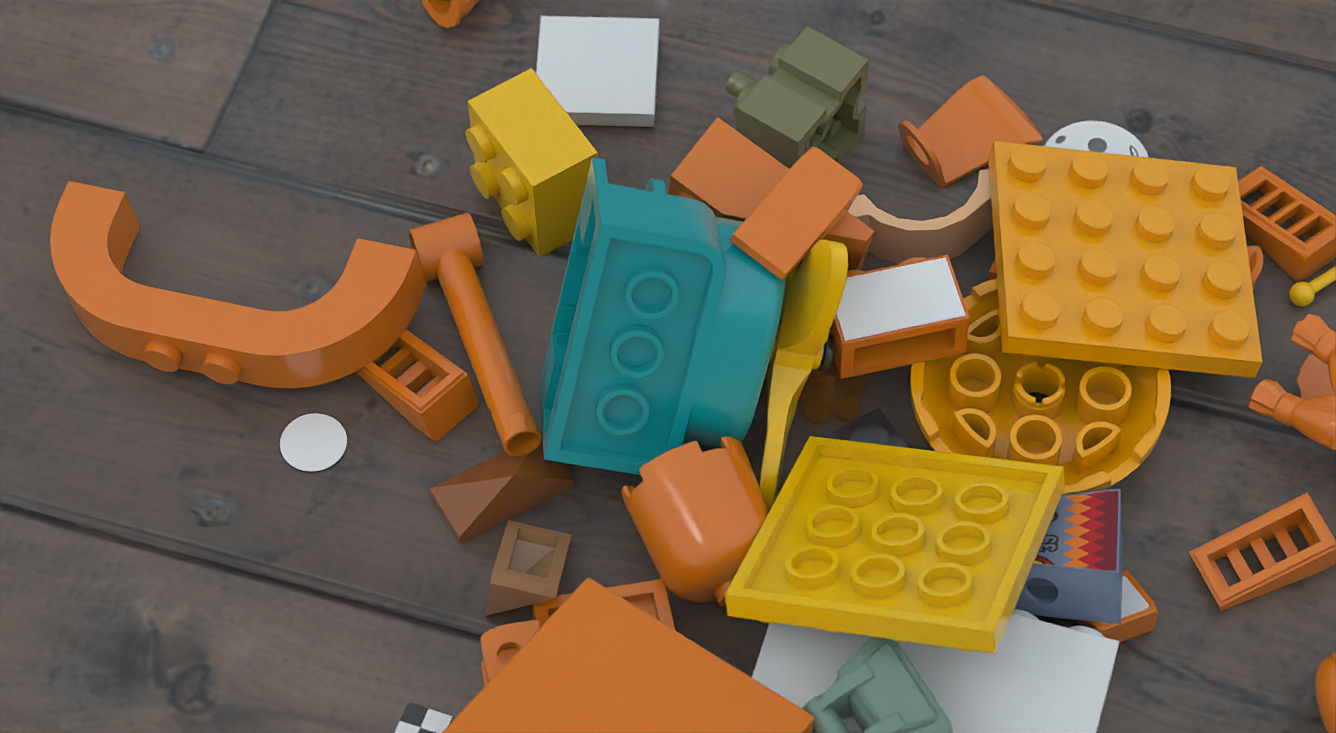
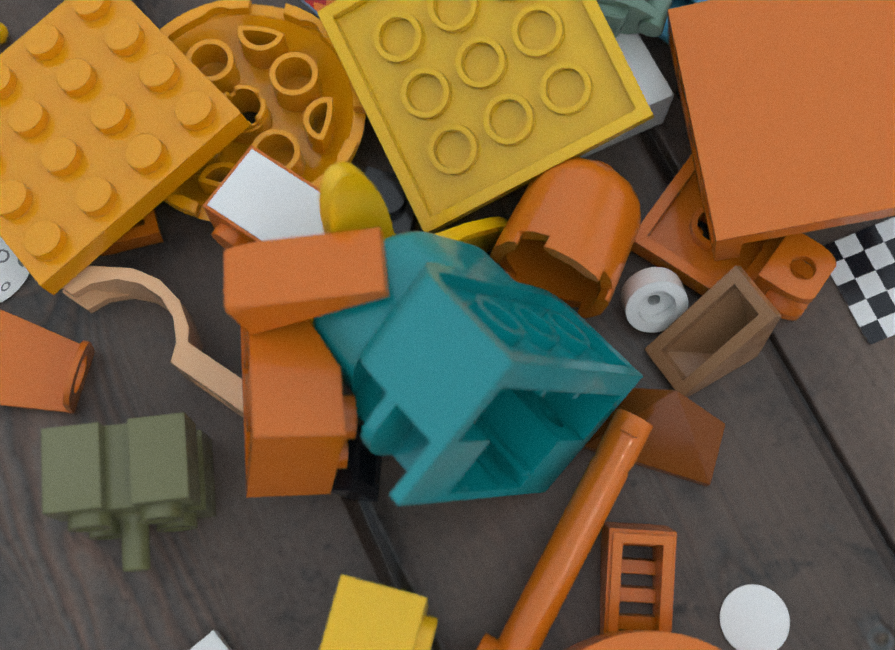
camera: 135 degrees left, 15 degrees up
(602, 558) = (653, 299): none -> white tile

